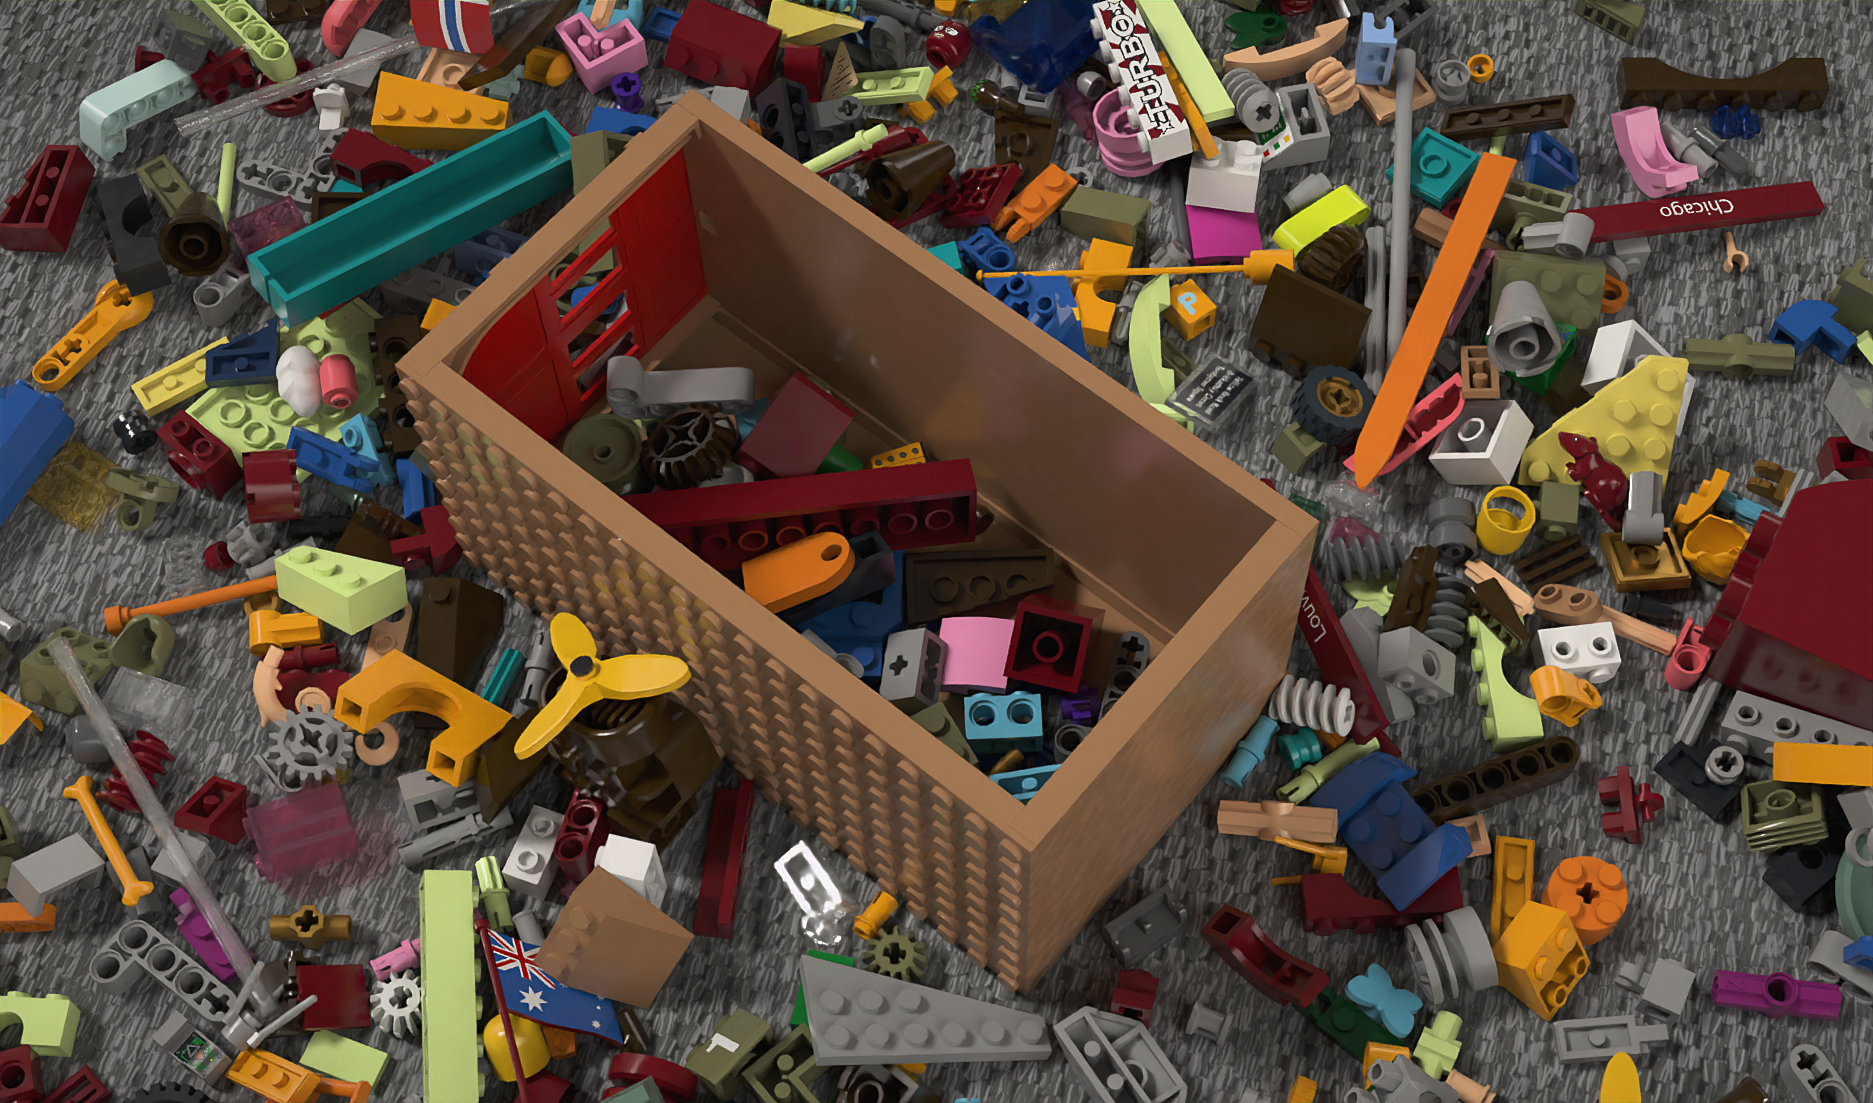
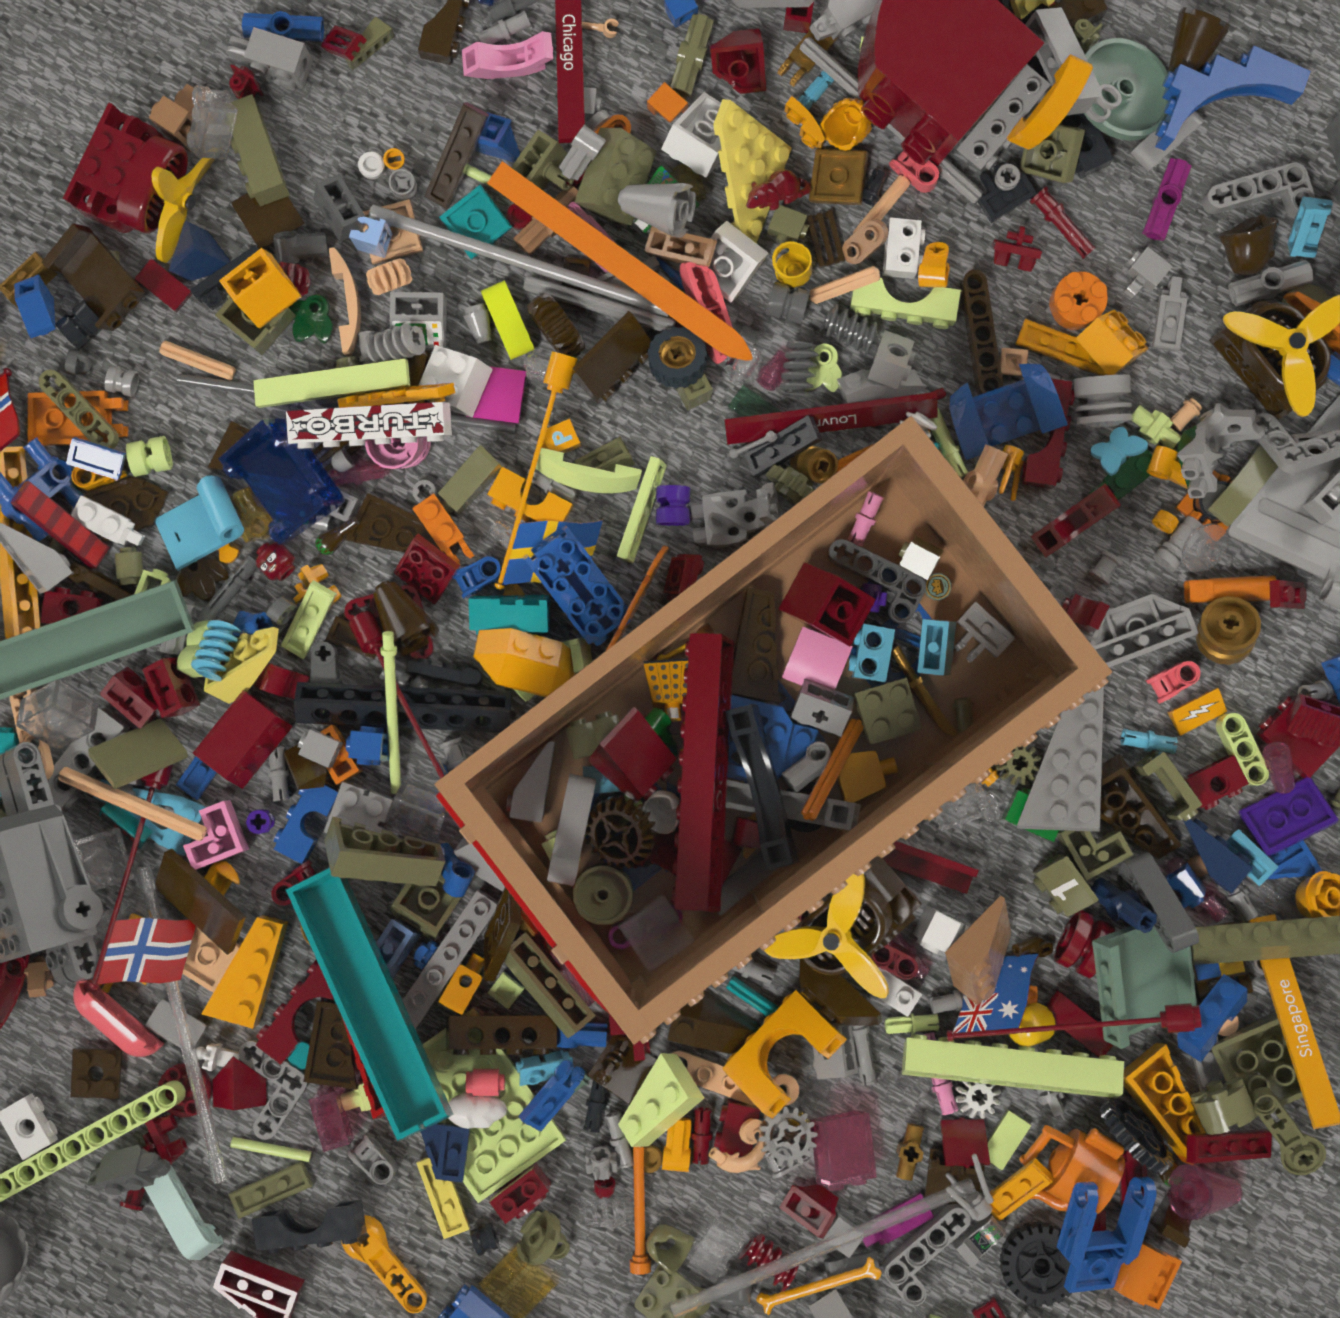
camera: 75 degrees left, 25 degrees up
(195, 237) = (327, 1176): dark brown cone -> none
(271, 486) = (570, 1143): dark red brick -> none
(298, 138) = (239, 1087): none -> dark red slope
(721, 349) = (531, 792): none -> light grey slope
(798, 571) = (750, 778): orange tile -> none
(841, 76) = (290, 654): tan sticker -> none
(1170, 255) = (516, 441): light grey gear -> none
(1212, 392) = (637, 440): piece -> none
(1414, 591) = (841, 346): dark brown hinge -> none
(1463, 48) = (371, 165): none -> white tile
(1496, 612) = (867, 294): dark brown slope -> none
(1643, 519) = (814, 168): light grey piece -> none
(1667, 331) = (666, 103): none -> orange panel
(1697, 848) = (1054, 213): none -> dark red pin
(1753, 410) = (740, 60): none -> dark red slope

